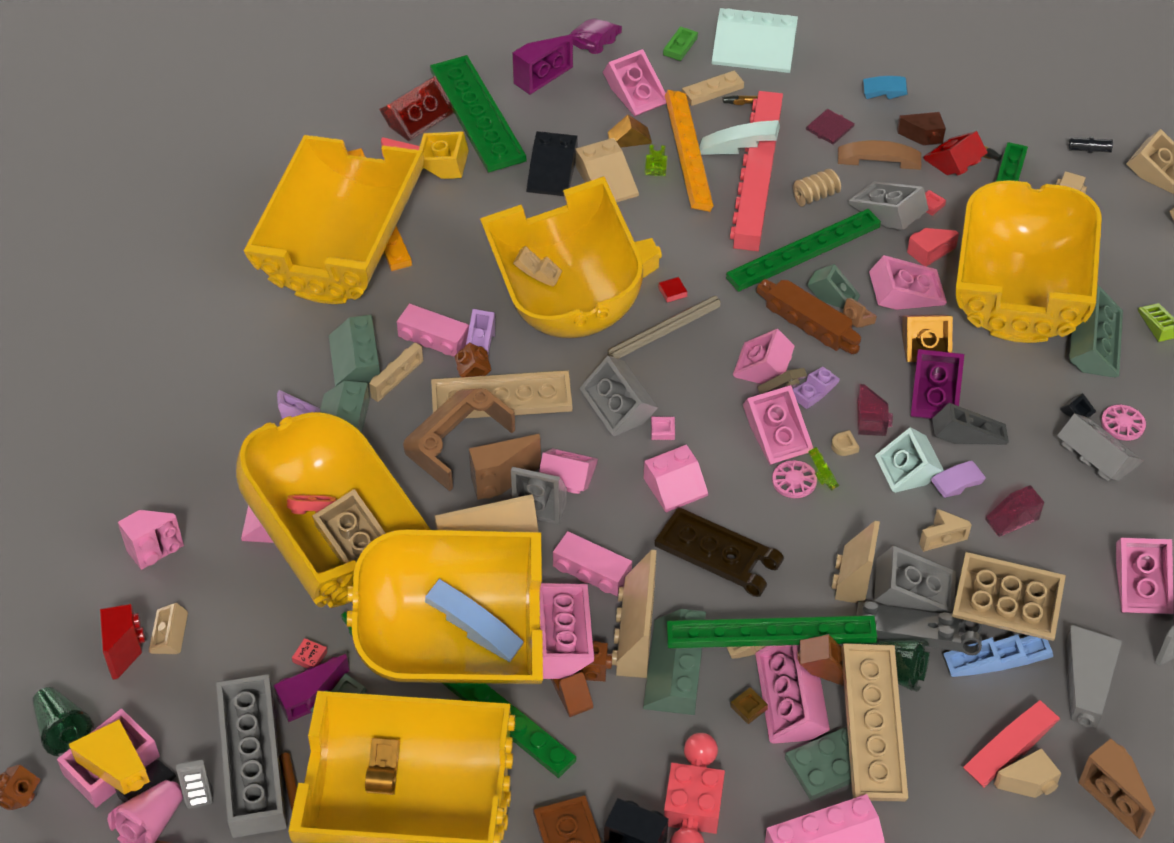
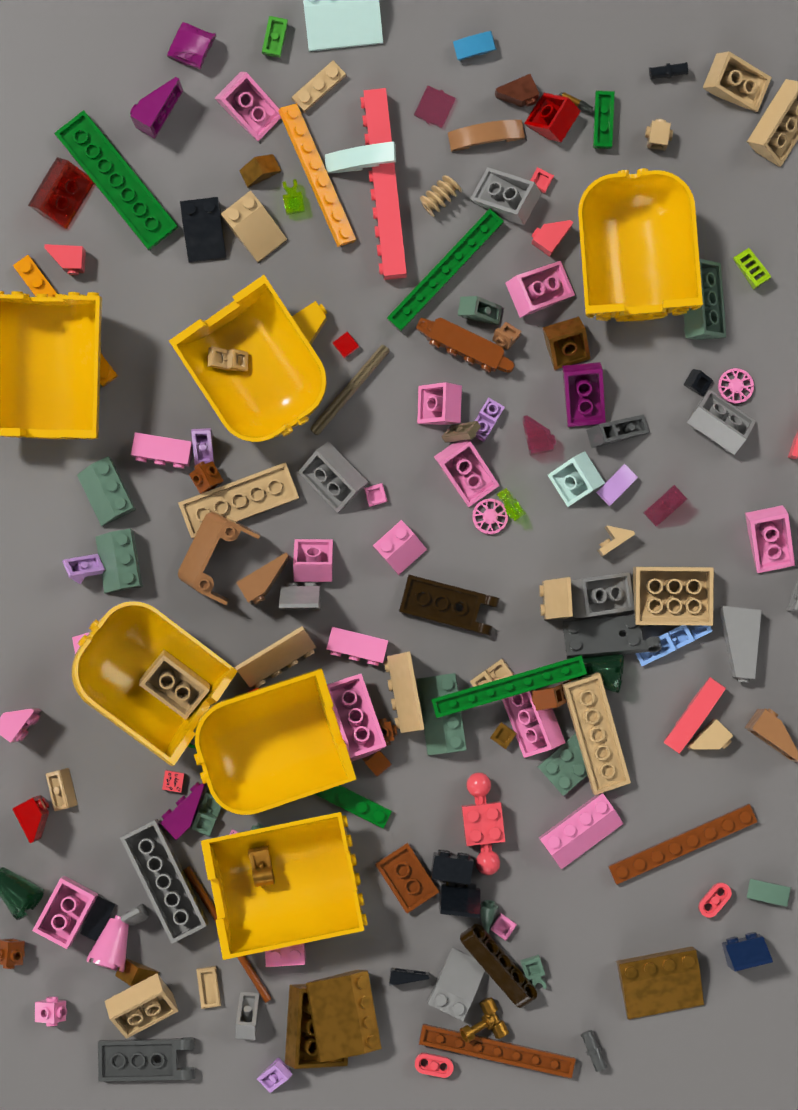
camera: 20 degrees left, 35 degrees up
(111, 757) = (74, 924): yellow slope -> none
(301, 503) = (132, 667): coral plate -> none
(396, 372) = (145, 501): tan plate -> none
(444, 153) = (104, 247): yellow slope -> none
(475, 620) = (287, 730): light blue slope -> none
(739, 100) = (348, 95): pearl gold piece -> none
(844, 444) = (521, 470): tan tile -> none

